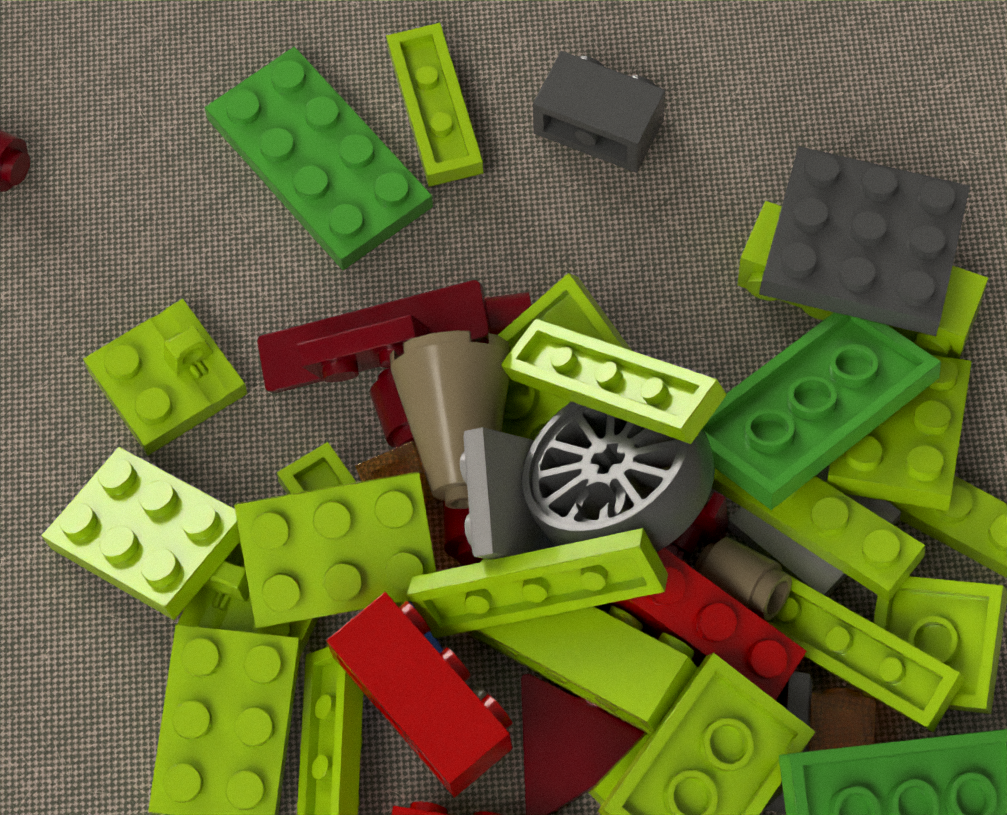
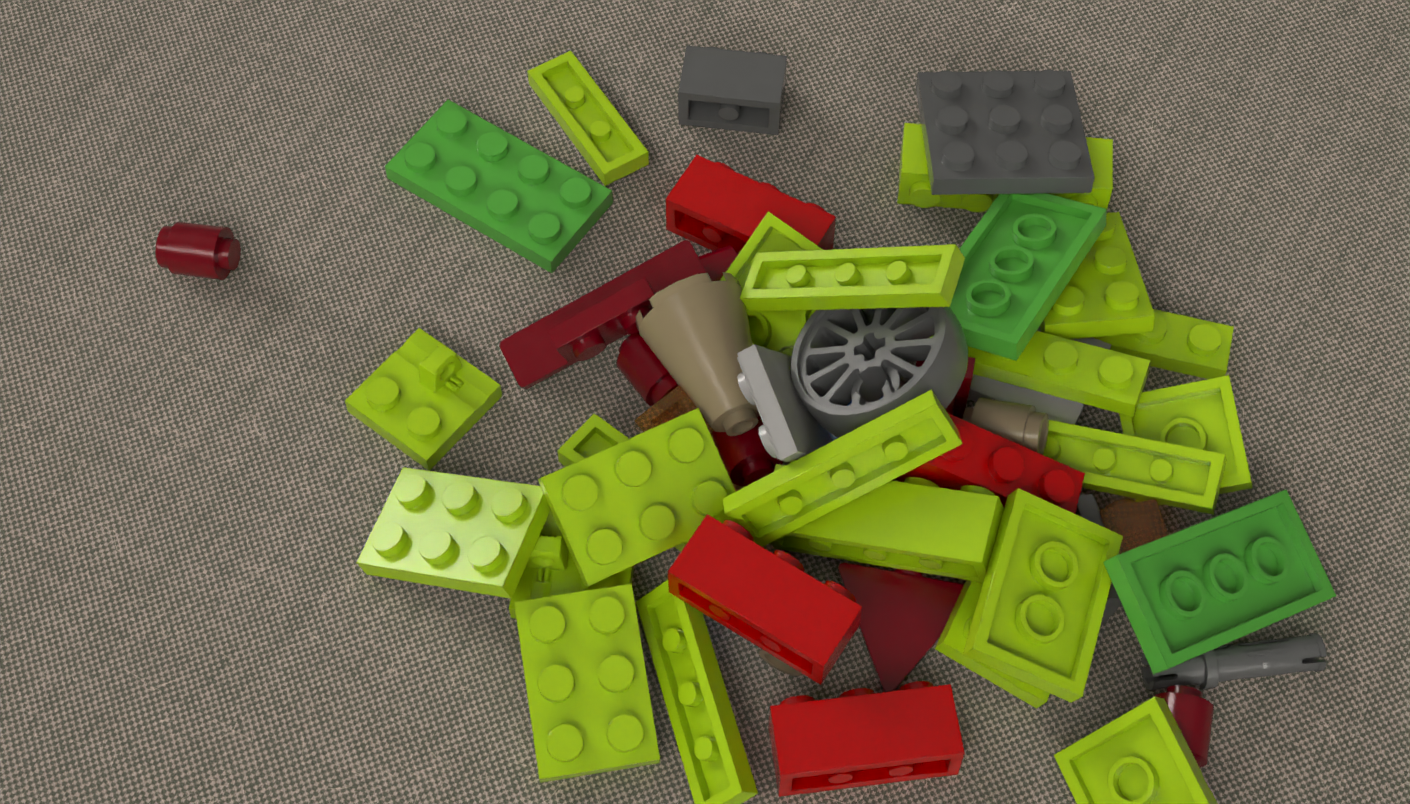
camera: 20 degrees left, 5 degrees down
(539, 244) = (724, 208): none -> red brick

